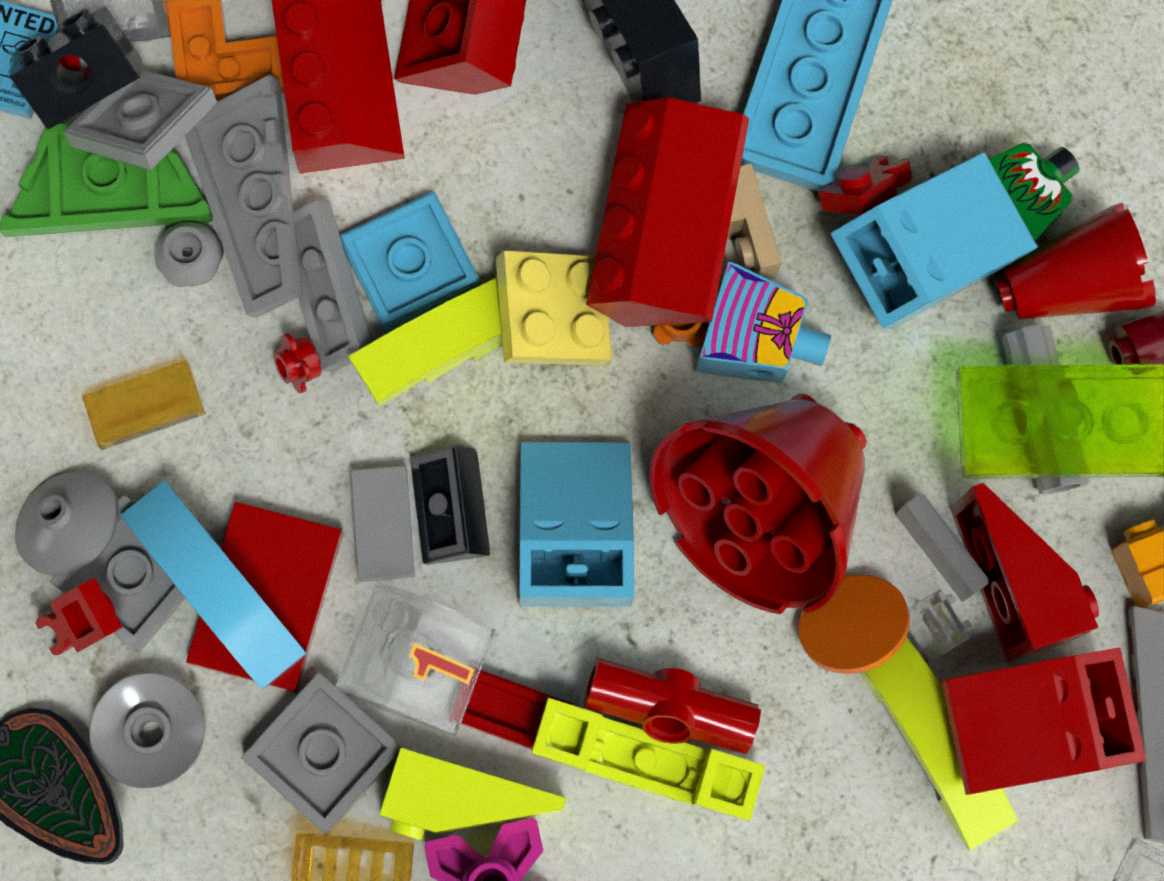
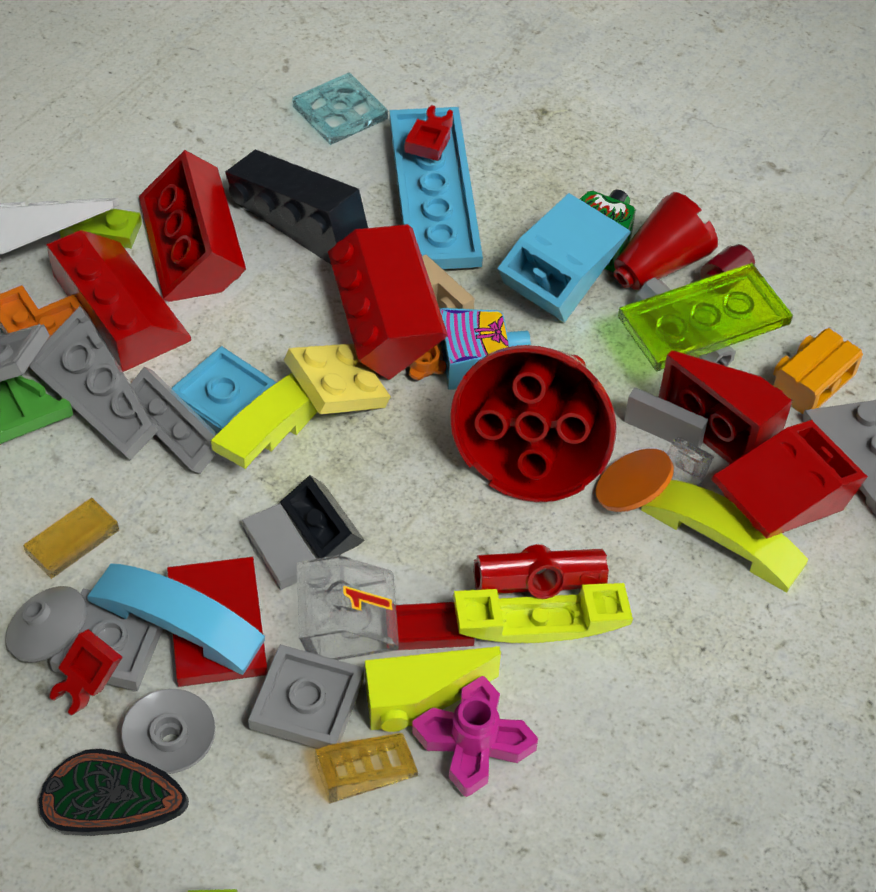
camera: 20 degrees left, 25 degrees down
(191, 270) = (68, 448): light grey plate -> none
(297, 361) = (173, 469): red plate -> none
(576, 525) = (420, 497): medium azure slope -> none
(864, 188) = (499, 247): red plate -> none

